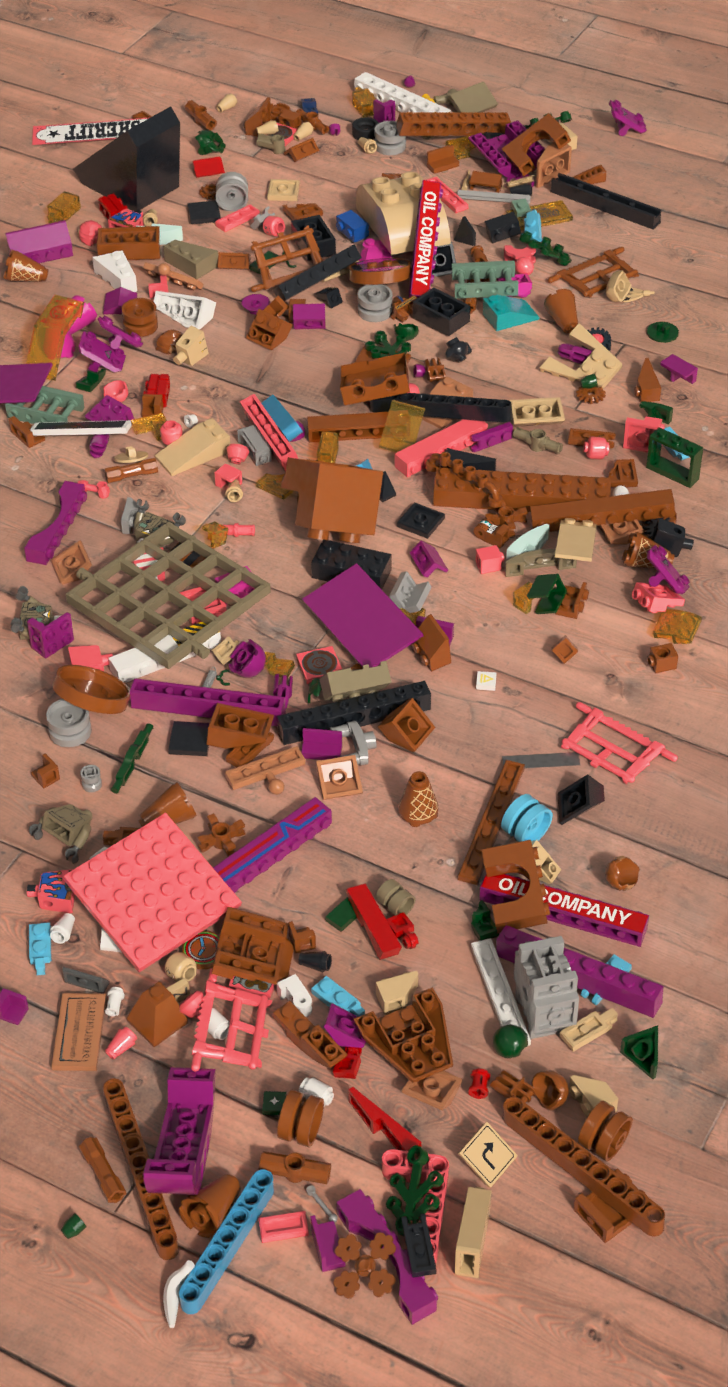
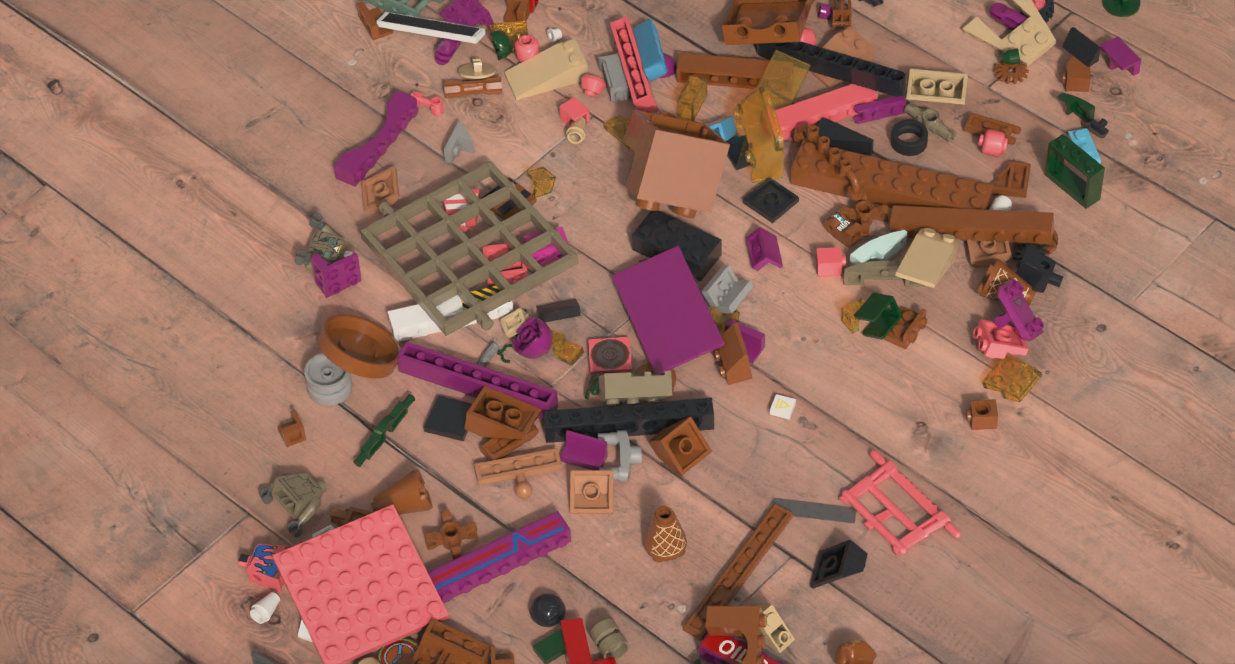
camera: 15 degrees right, 5 degrees up
(40, 946) = (238, 622): medium azure hinge -> none
(88, 656) = (368, 306): coral torso -> none
(91, 778) = (335, 446): light grey wheel -> none
(147, 432) = (502, 44): none -> dark green hair
(148, 523) = (473, 156): torso -> none
(237, 529) = (568, 179): coral pin -> none
(263, 634) = (559, 310): none -> black slope
(283, 690) = (561, 381): magenta arm -> none
(329, 884) = (547, 610): none -> black piece
(404, 463) = (763, 134): none -> clear yellow windscreen
(523, 463) = (909, 148): none -> black tyre
(526, 819) = (771, 578): medium azure wheel -> none
(564, 649) = (878, 384): dark orange panel -> none
(638, 432) = (1044, 131): coral plate -> none
(647, 364) = (1081, 47): none -> black slope
(677, 424) = (1095, 127): none -> black piece

